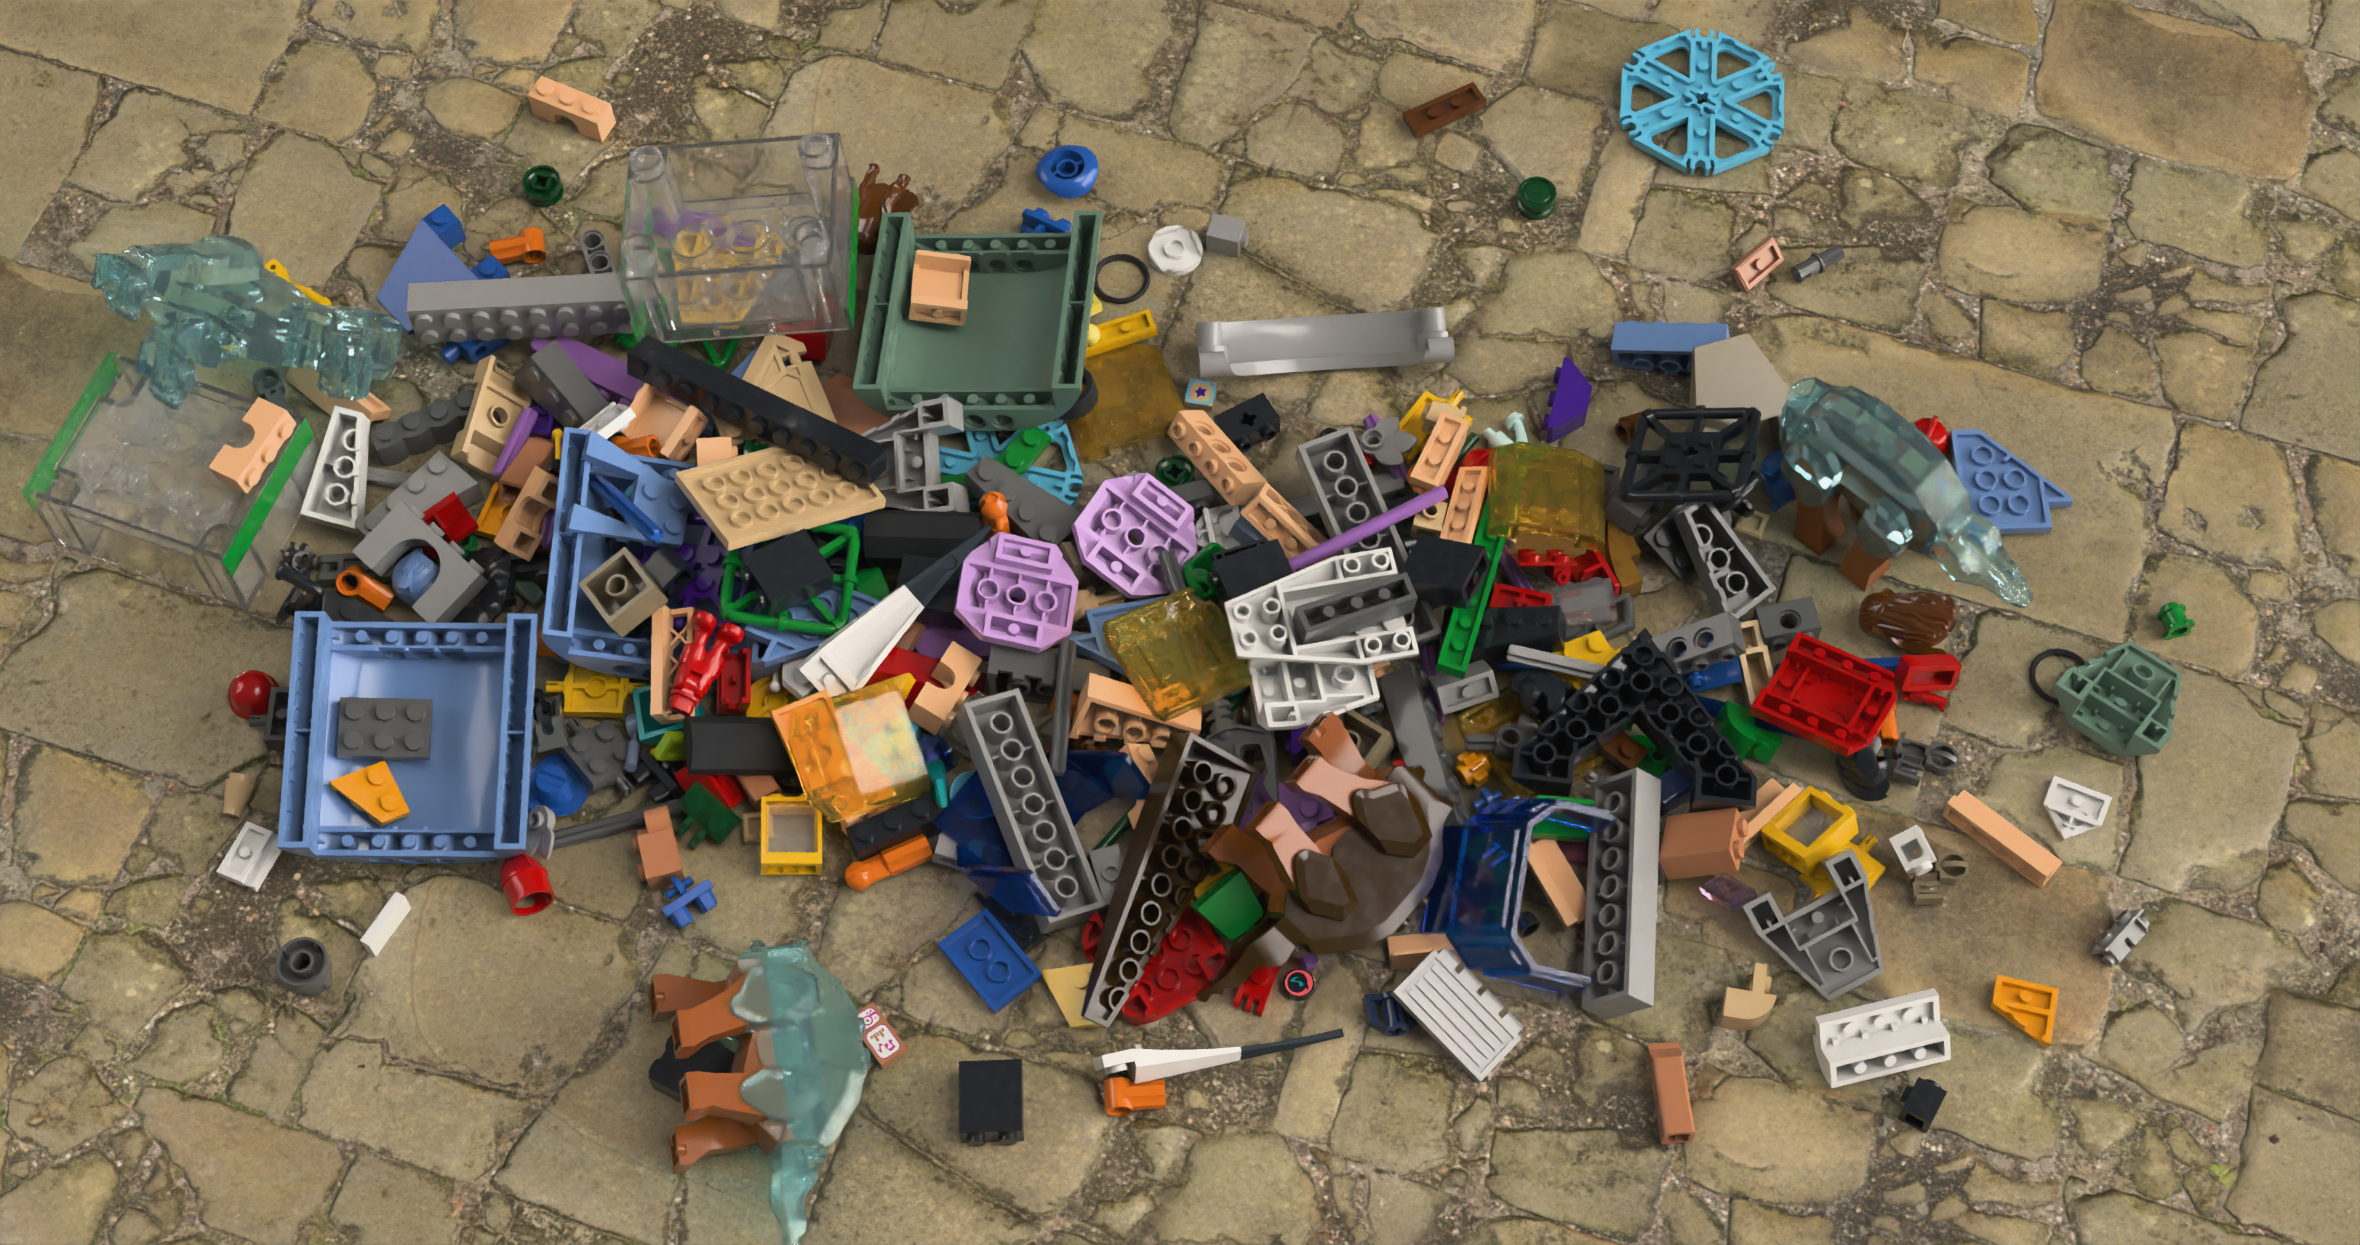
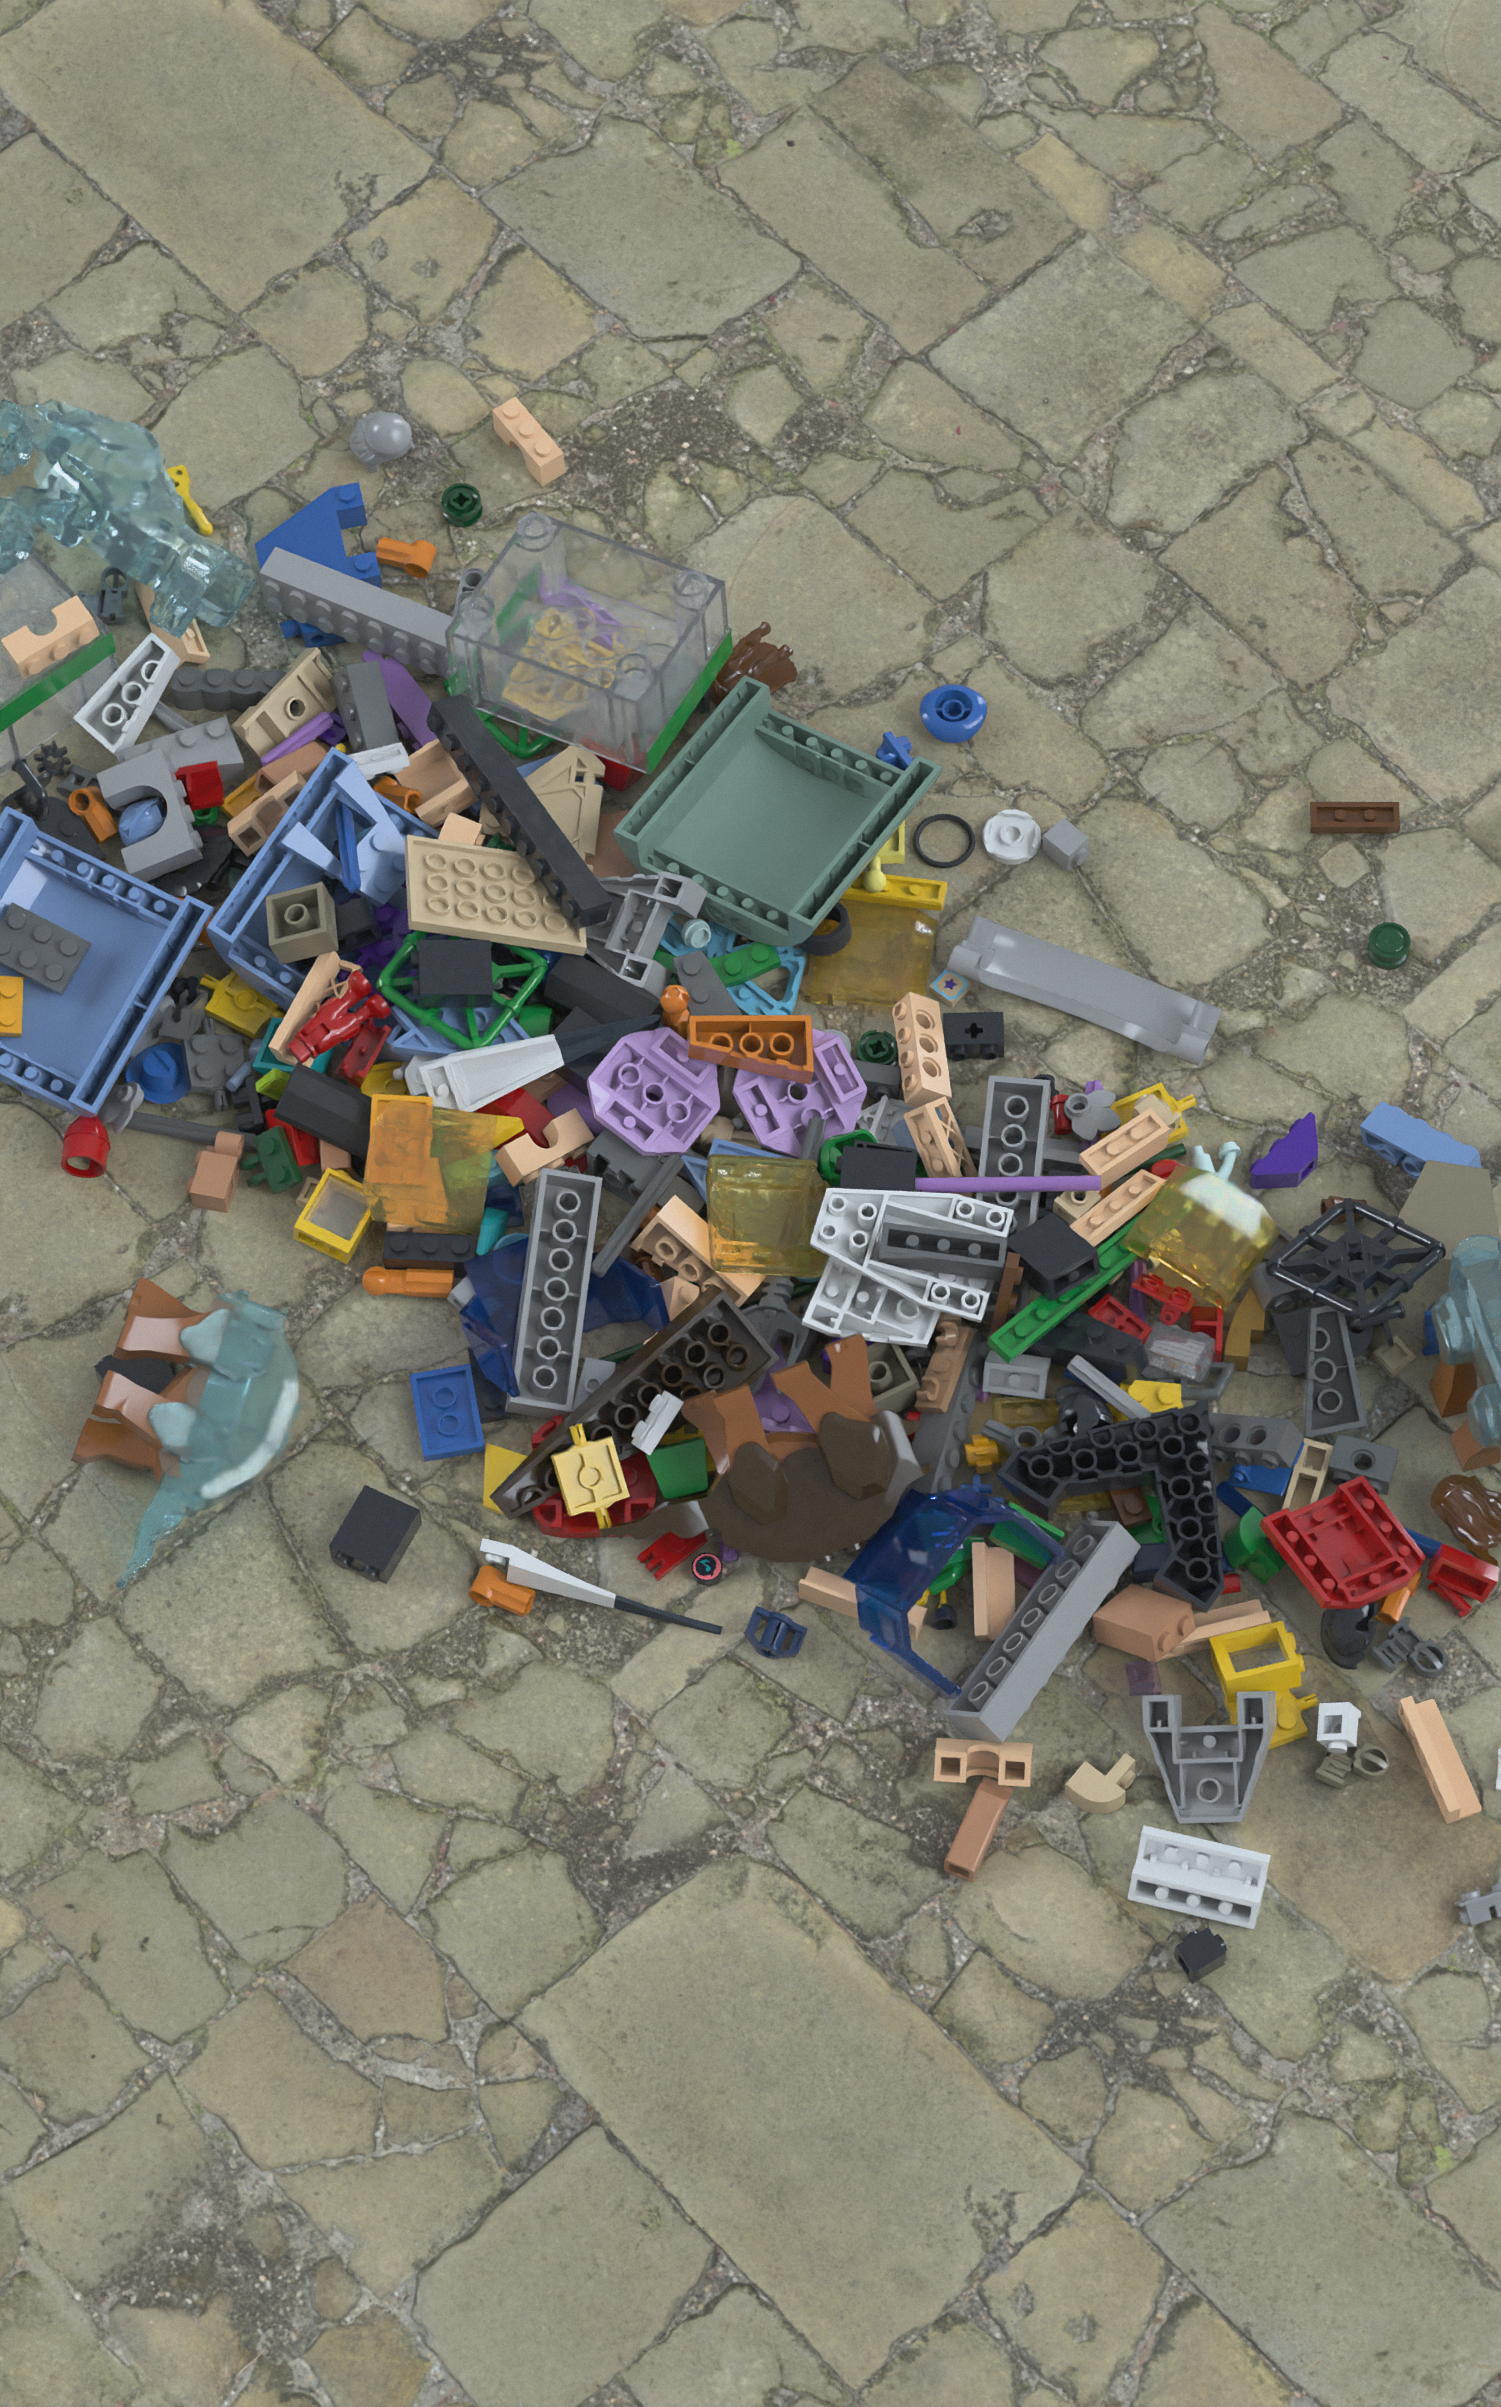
camera: 30 degrees right, 0 degrees up
(441, 160) = (380, 439): none -> light grey hair
(677, 909) = (203, 1232): blue hips -> none
(880, 1037) = (313, 1429): tile -> none
(939, 288) = (758, 772): light nougat panel -> none
(963, 446) = (695, 933): none -> light aqua plate
(1087, 510) = (755, 1043): none -> orange wedge
(1159, 953) = (590, 1476): none -> yellow plate
(1193, 877) = (662, 1413): none -> white plate
(1402, 711) = (944, 1368): none -> medium nougat plate
(1424, 628) = (1006, 1299): none -> reddish brown plate
(1457, 1015) = (826, 1663): hinge -> none
(1618, 1039) = (965, 1758): none -> light nougat arch
(2026, 1006) = (1357, 1919): light orange wing -> none

